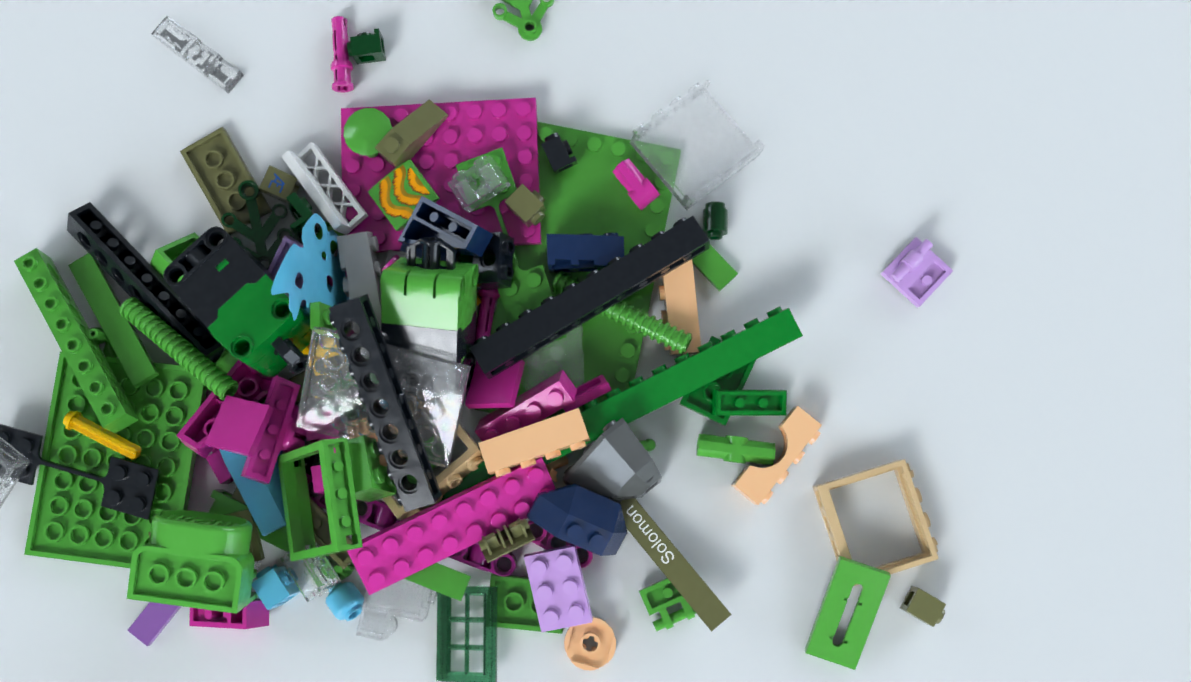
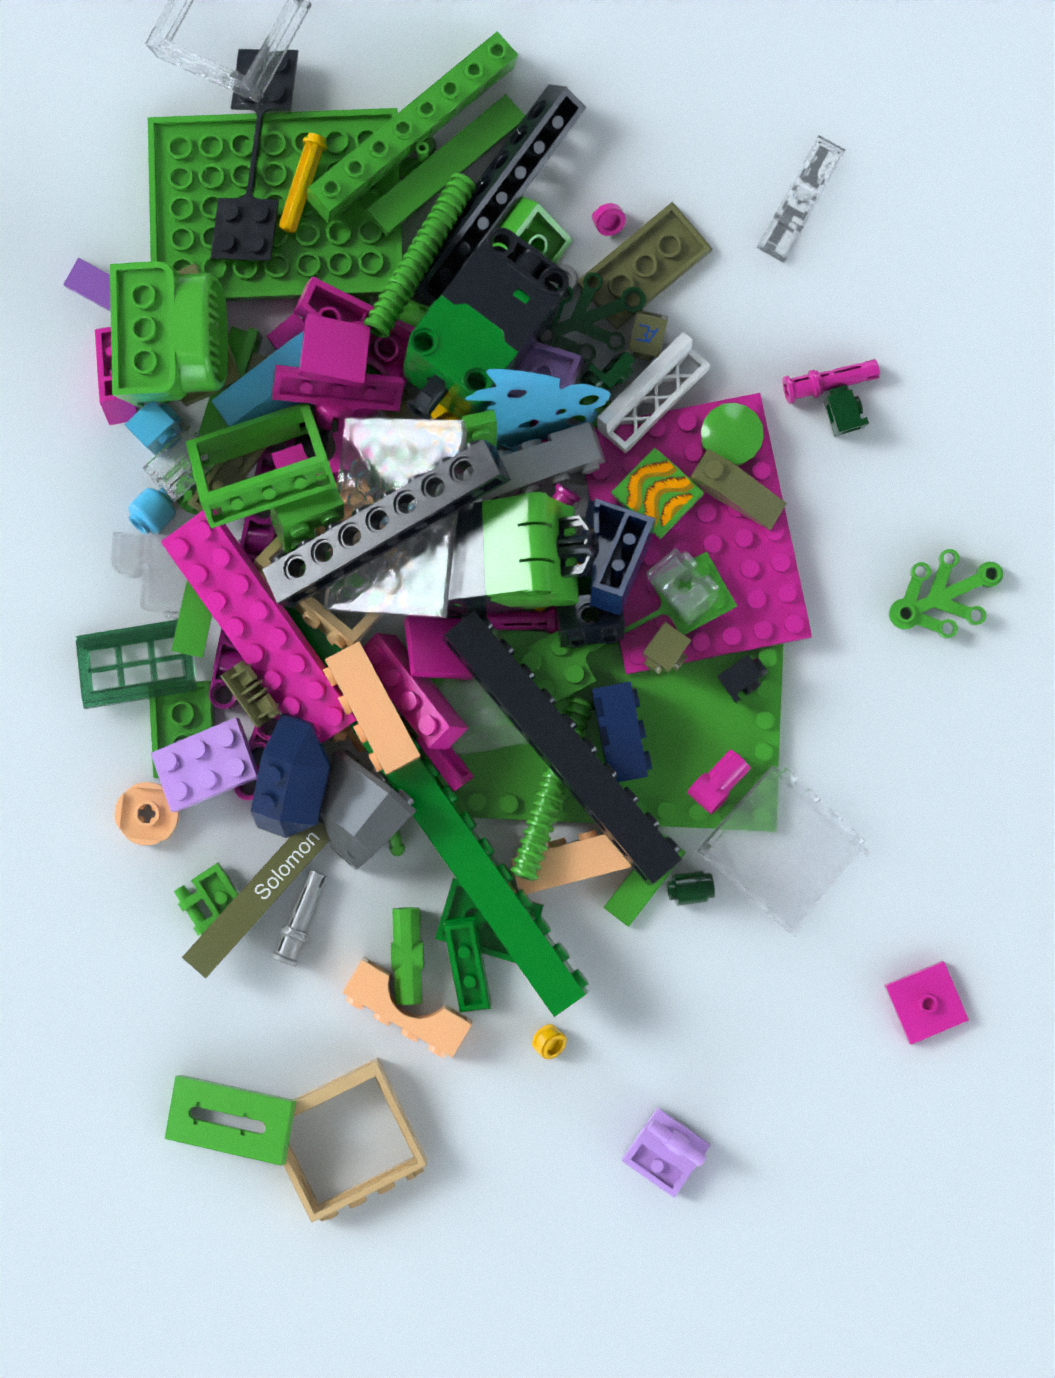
camera: 80 degrees right, 5 degrees up
(183, 201) = (609, 219): none -> dark pink tile
(703, 536) = (295, 932): none -> light grey pin
(818, 349) = (549, 1041): none -> yellow tile
(827, 60) = (926, 1002): none -> dark pink plate
(923, 606) = (251, 1212): olive brick -> none

